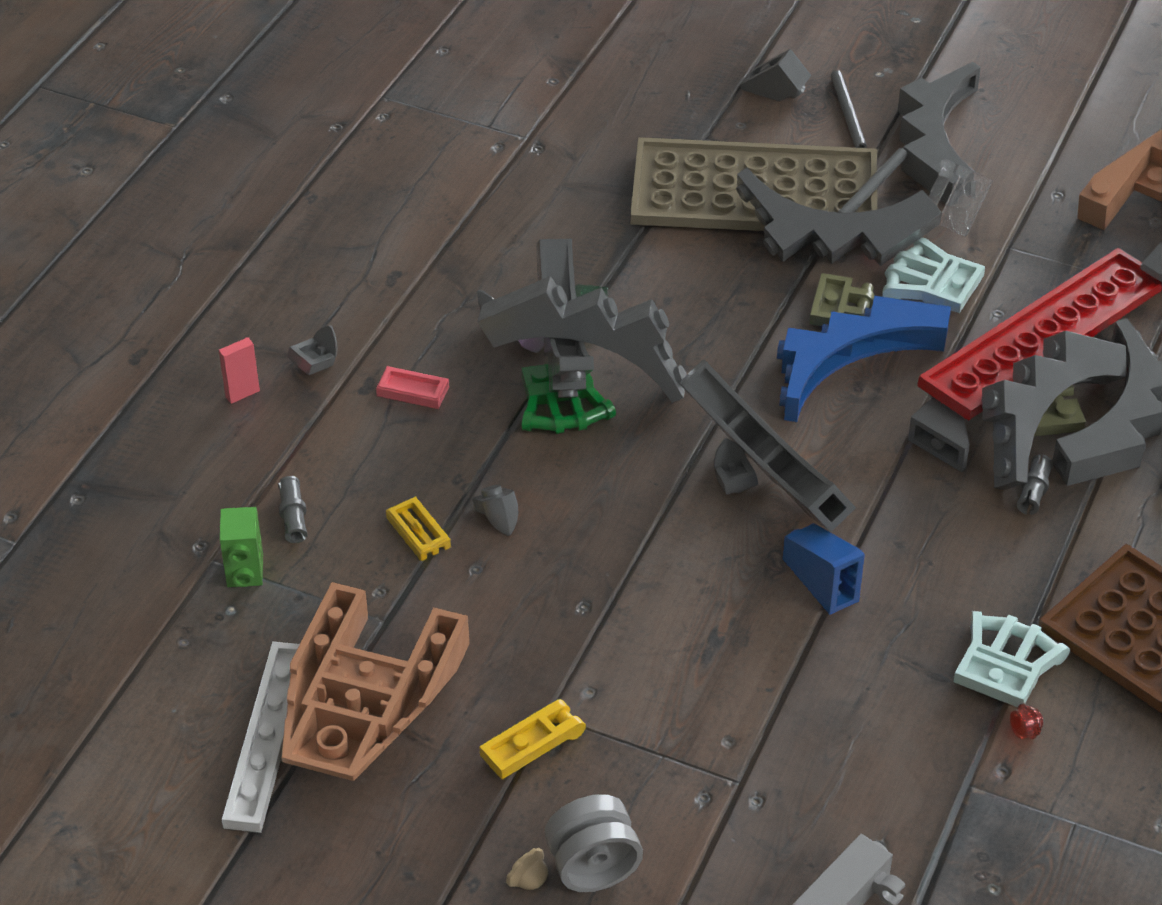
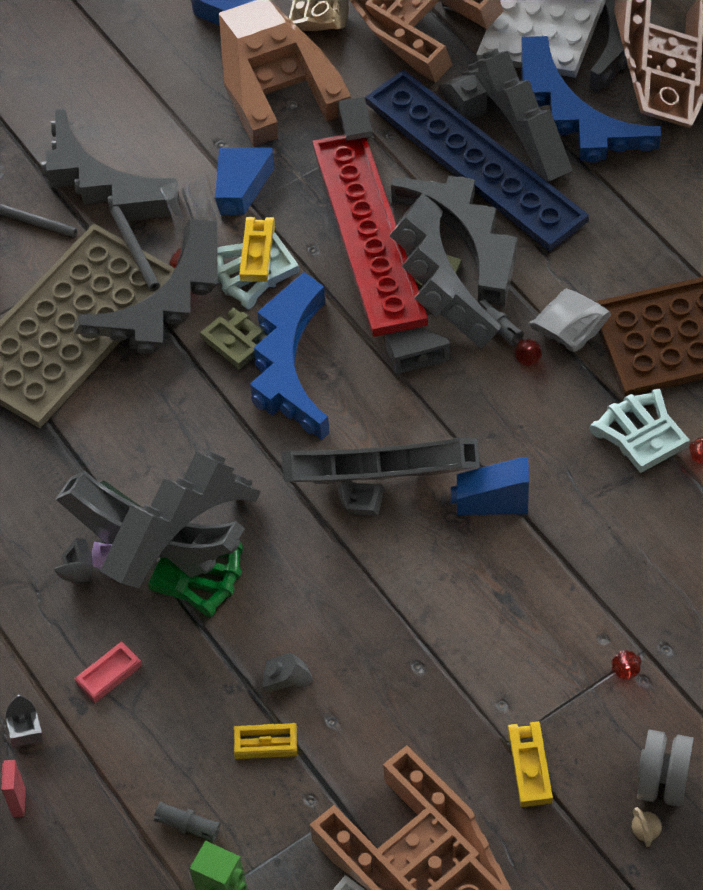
camera: 55 degrees left, 10 degrees up
(706, 768) = (626, 664): none -> clear red plate
(946, 262) = (257, 249): none -> yellow plate
(1021, 523) = (528, 352): none -> clear red plate
(1024, 221) = (241, 177): none -> blue slope
(1084, 535) = (571, 319): none -> light grey slope

